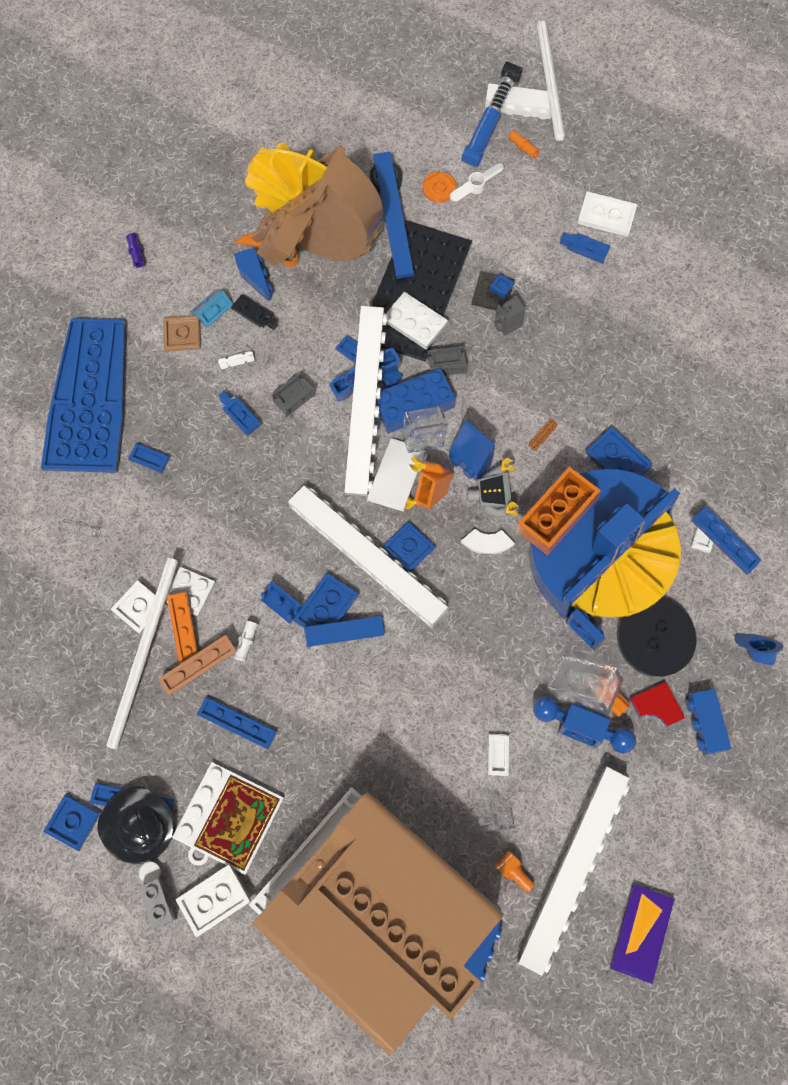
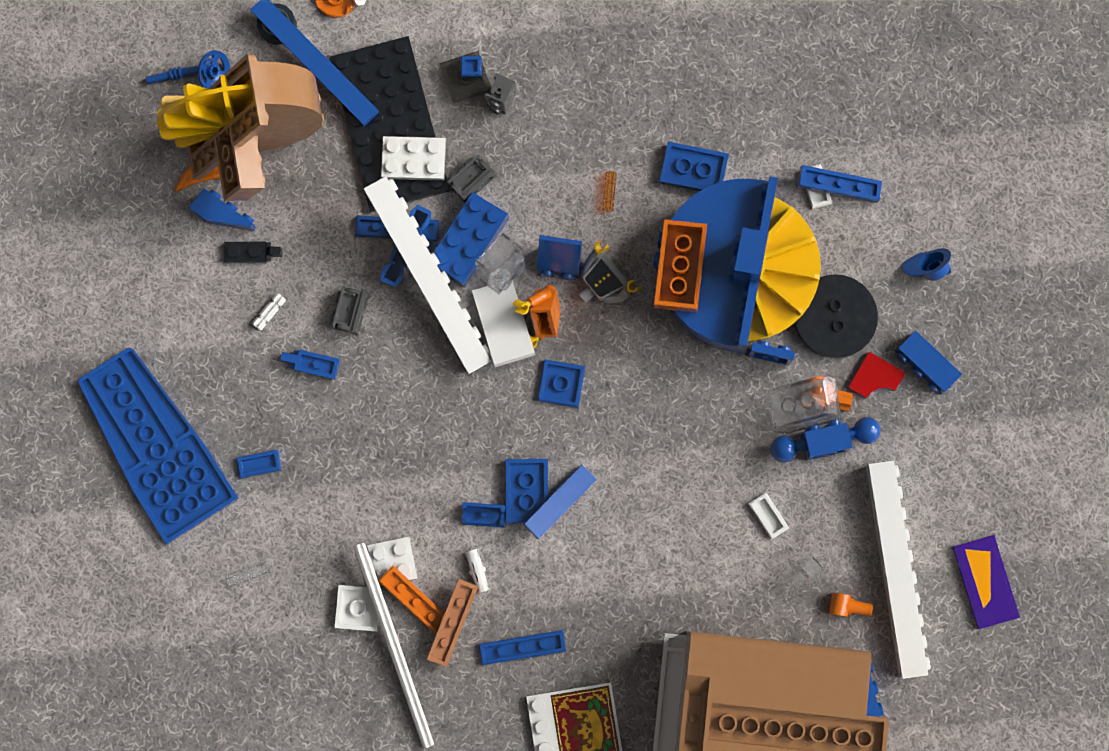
camera: 30 degrees left, 10 degrees up
(135, 250) = (84, 266): dark purple pin -> none
(181, 333) = (195, 320): medium nougat tile -> none
(212, 307) = (205, 275): dark azure panel -> none
(368, 557) = (530, 418): white brick -> none
(487, 543) = (630, 330): white tile -> none

